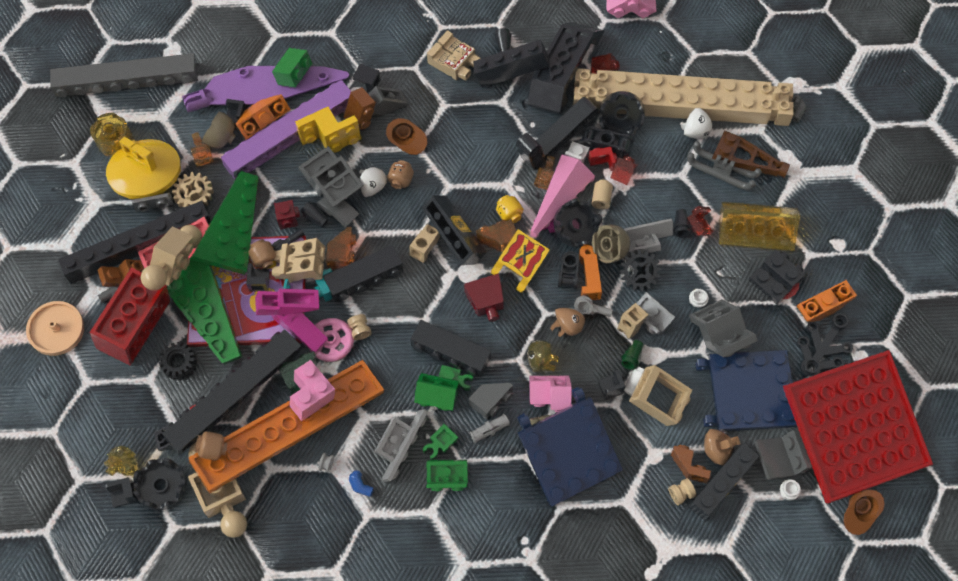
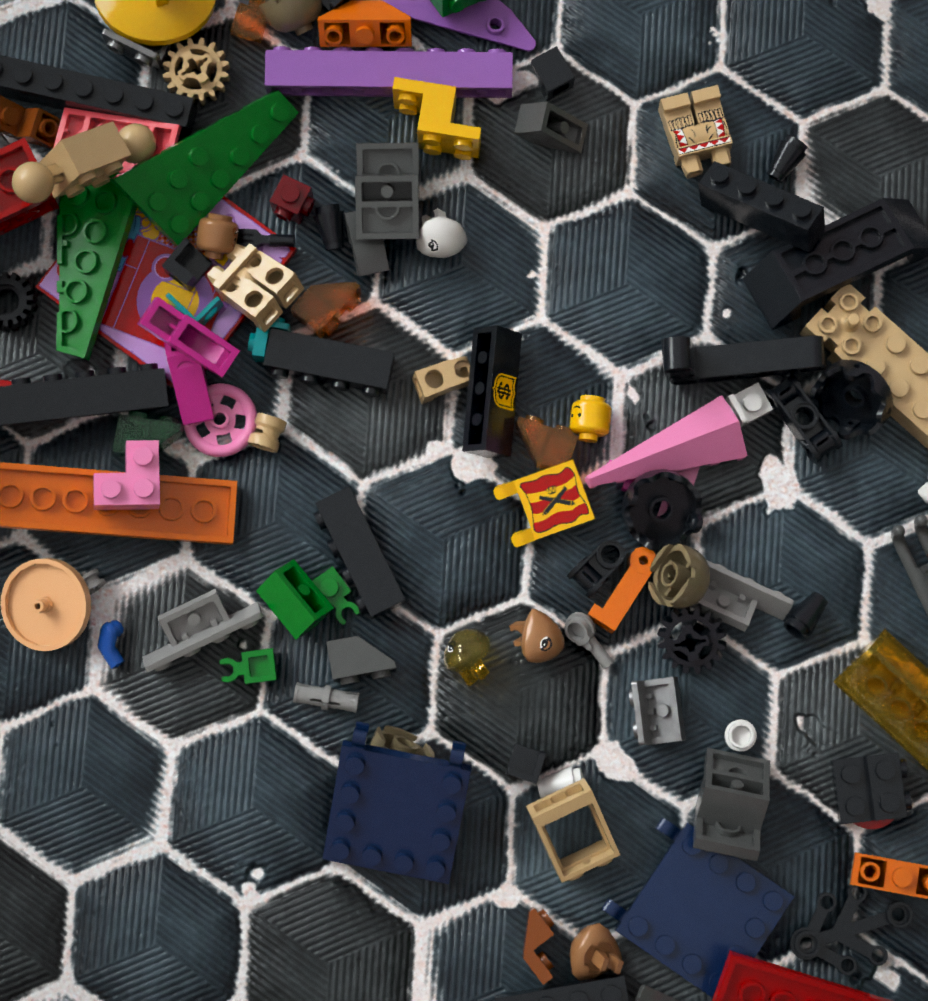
camera: 35 degrees right, 15 degrees up
(311, 488) = (45, 604): none -> light nougat piece
(361, 106) = (503, 117): dark orange brick -> none
(400, 174) = (485, 255): medium nougat head -> none
(406, 136) = (537, 204): dark orange piece -> none
(447, 474) = (224, 717): green bracket -> none
(485, 296) = (462, 517): dark red torso -> none
(545, 175) = (679, 404): clear orange plate -> none
(550, 390) = (440, 713): bright pink brick -> none
(601, 156) = (777, 433): red bracket -> none
(602, 194) = (733, 491): tan brick -> none
(604, 62) = (898, 302): clear red bracket -> none
(623, 170) = (793, 478): clear red bracket -> none
(632, 320) = (620, 702): tan leg -> none
(632, 356) = (587, 745): dark green cone -> none
(681, 492) = (499, 971): tan wheel -> none
(699, 223) = (830, 633): clear red bracket -> none

